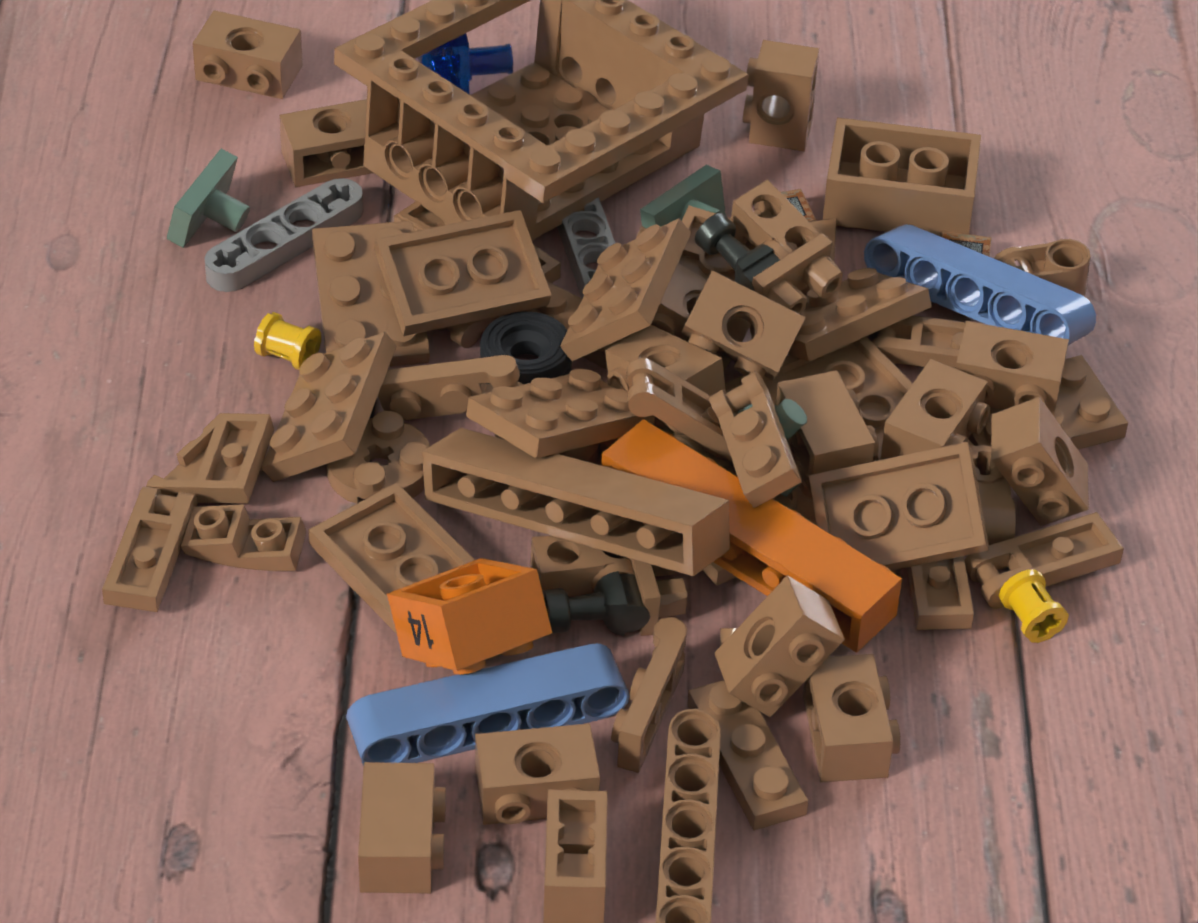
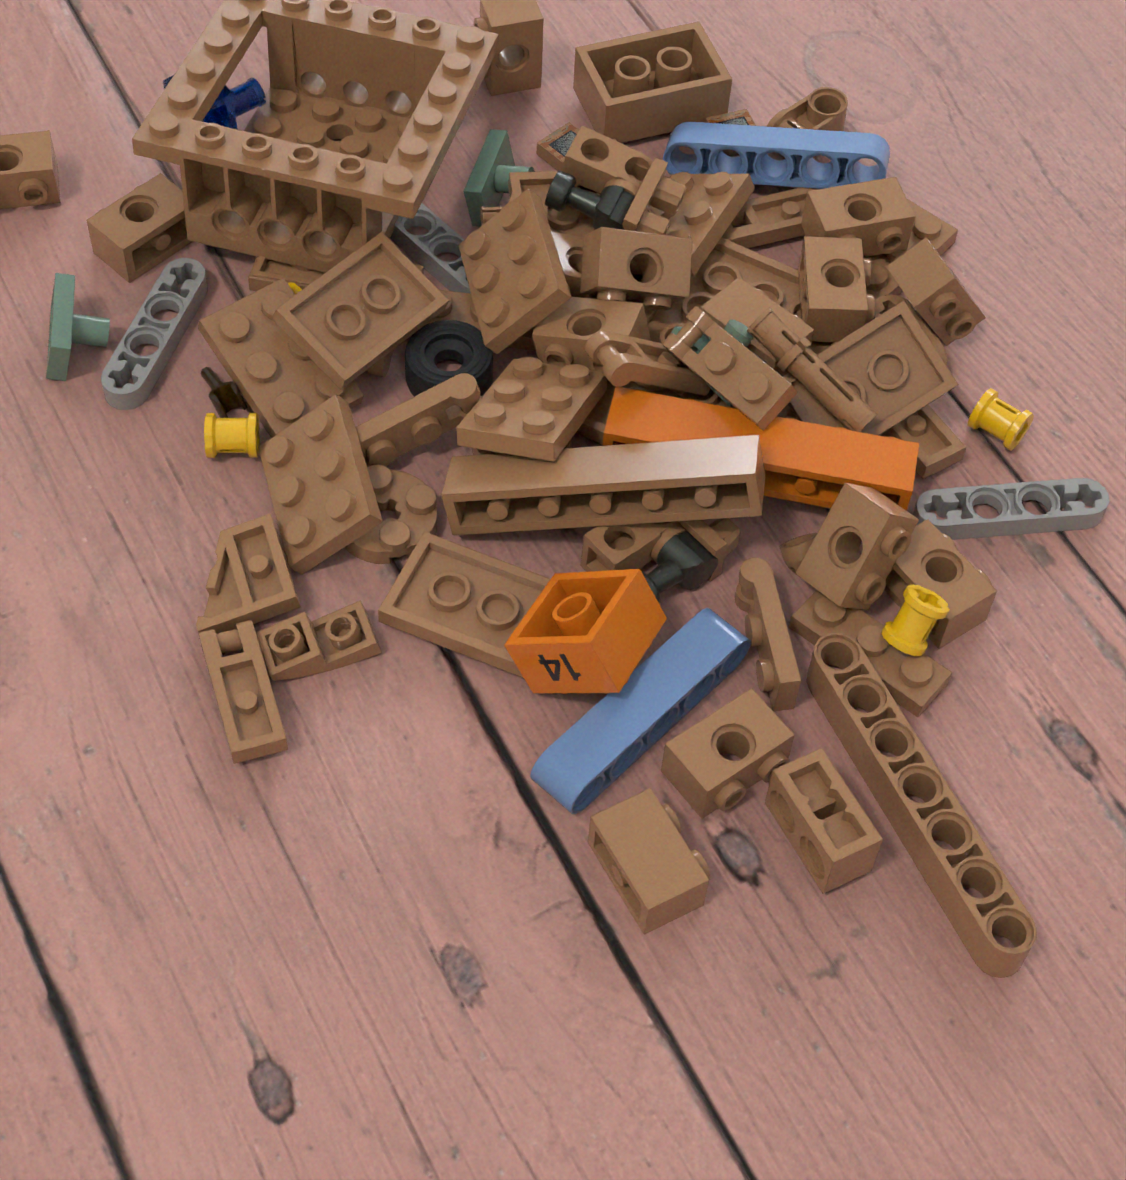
camera: 30 degrees left, 10 degrees up
(306, 307) = (223, 395): none -> dark brown hand
(790, 732) = (915, 620): none -> yellow bush
(833, 457) = (811, 371): none -> medium nougat pin
(987, 681) = (1013, 517): none -> light grey beam
(1055, 551) = (982, 366): medium nougat plate -> none

